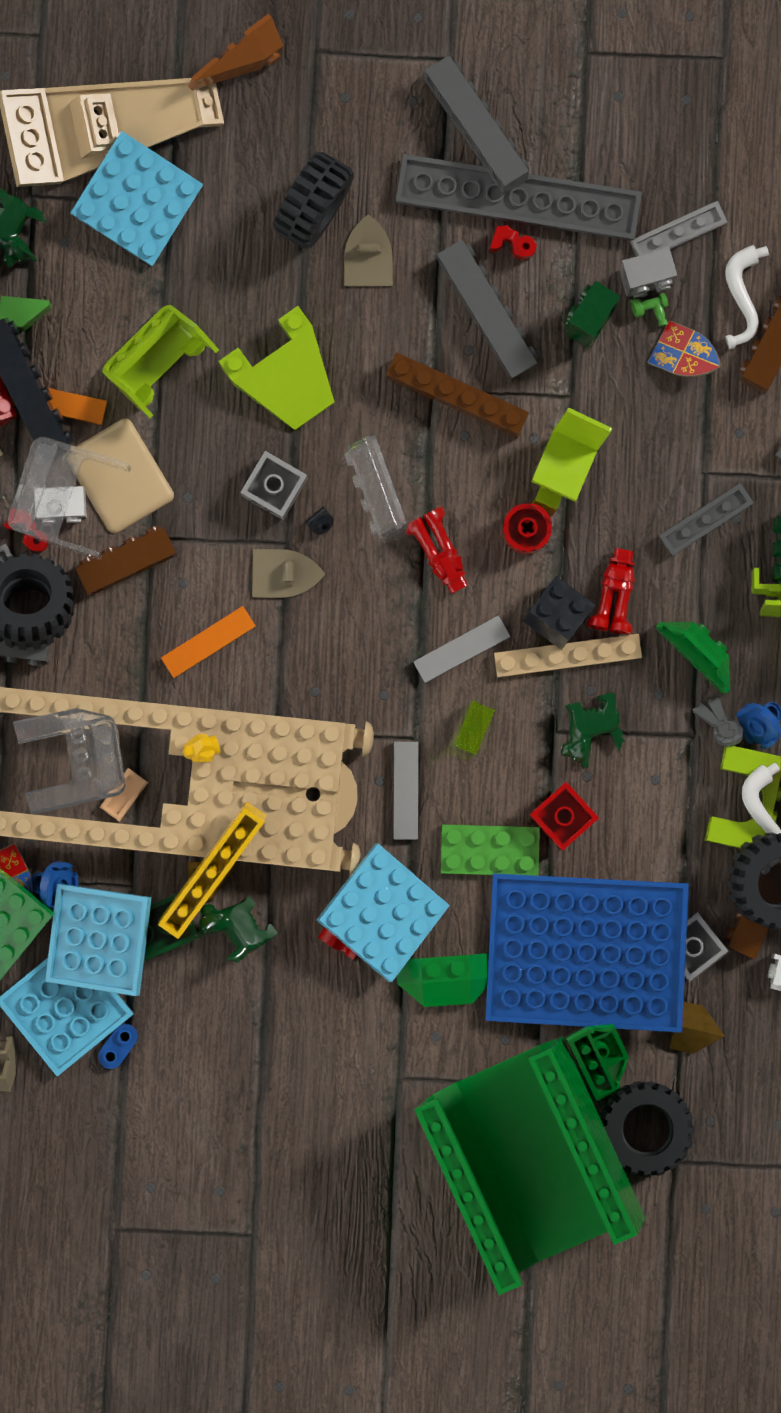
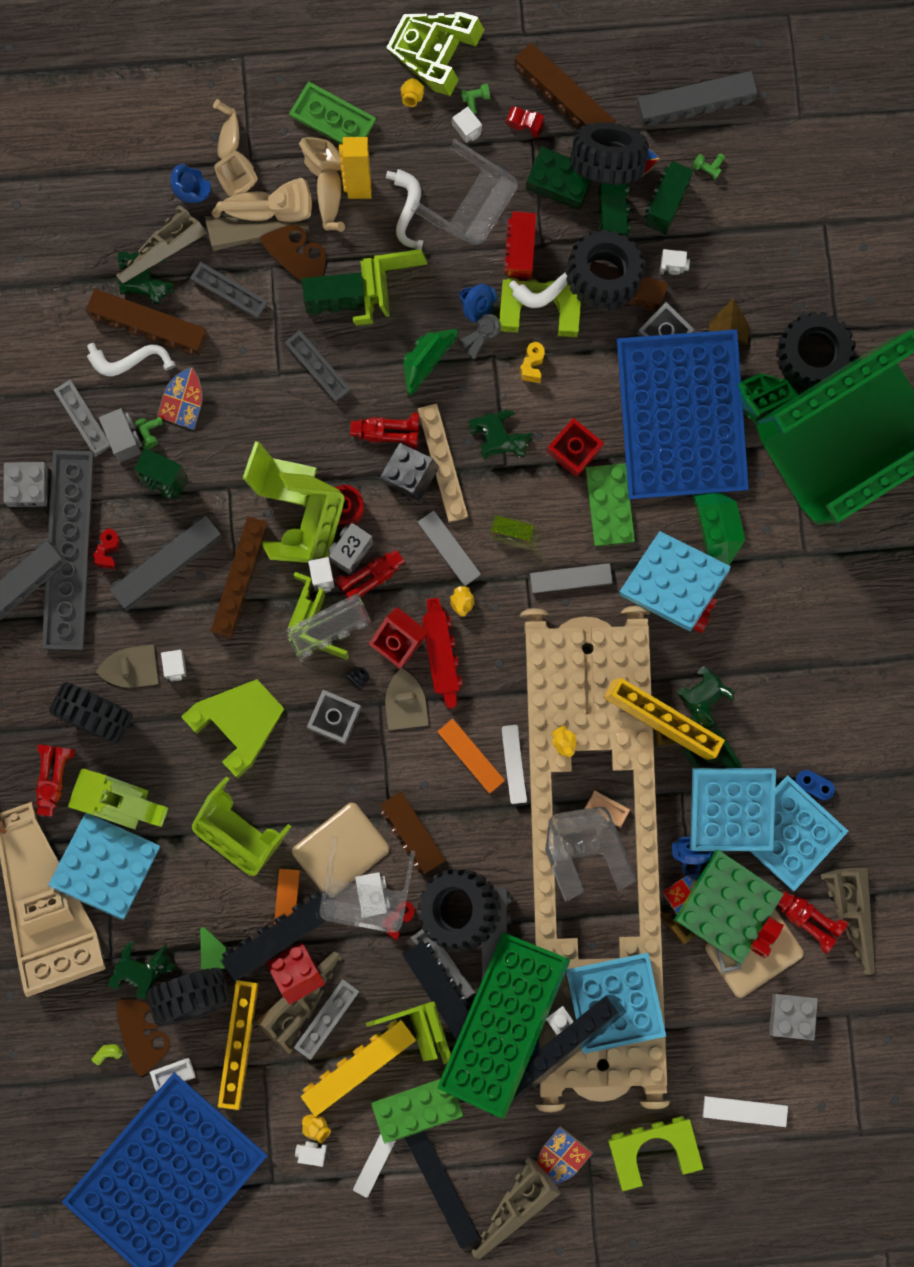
camera: 100 degrees left, 5 degrees down
(191, 691) = (514, 764): none -> white sticker
(210, 218) = (114, 800): none -> lime piece
(234, 146) = (49, 791): none -> red piece
(335, 621) = (440, 653): none -> red hinge
(358, 572) = (398, 637): none -> red brick
(362, 305) = (173, 665): none -> white brick
(394, 656) = (462, 600): none -> yellow rock
(403, 469) = (307, 608): none -> lime piece
(445, 491) = (321, 574): none -> white brick
(473, 529) = (350, 548): none -> light grey brick
(513, 498) = (318, 523): none -> lime windscreen
(603, 155) = (26, 484): none -> light grey brick
(685, 785) = (534, 357): none -> yellow leg

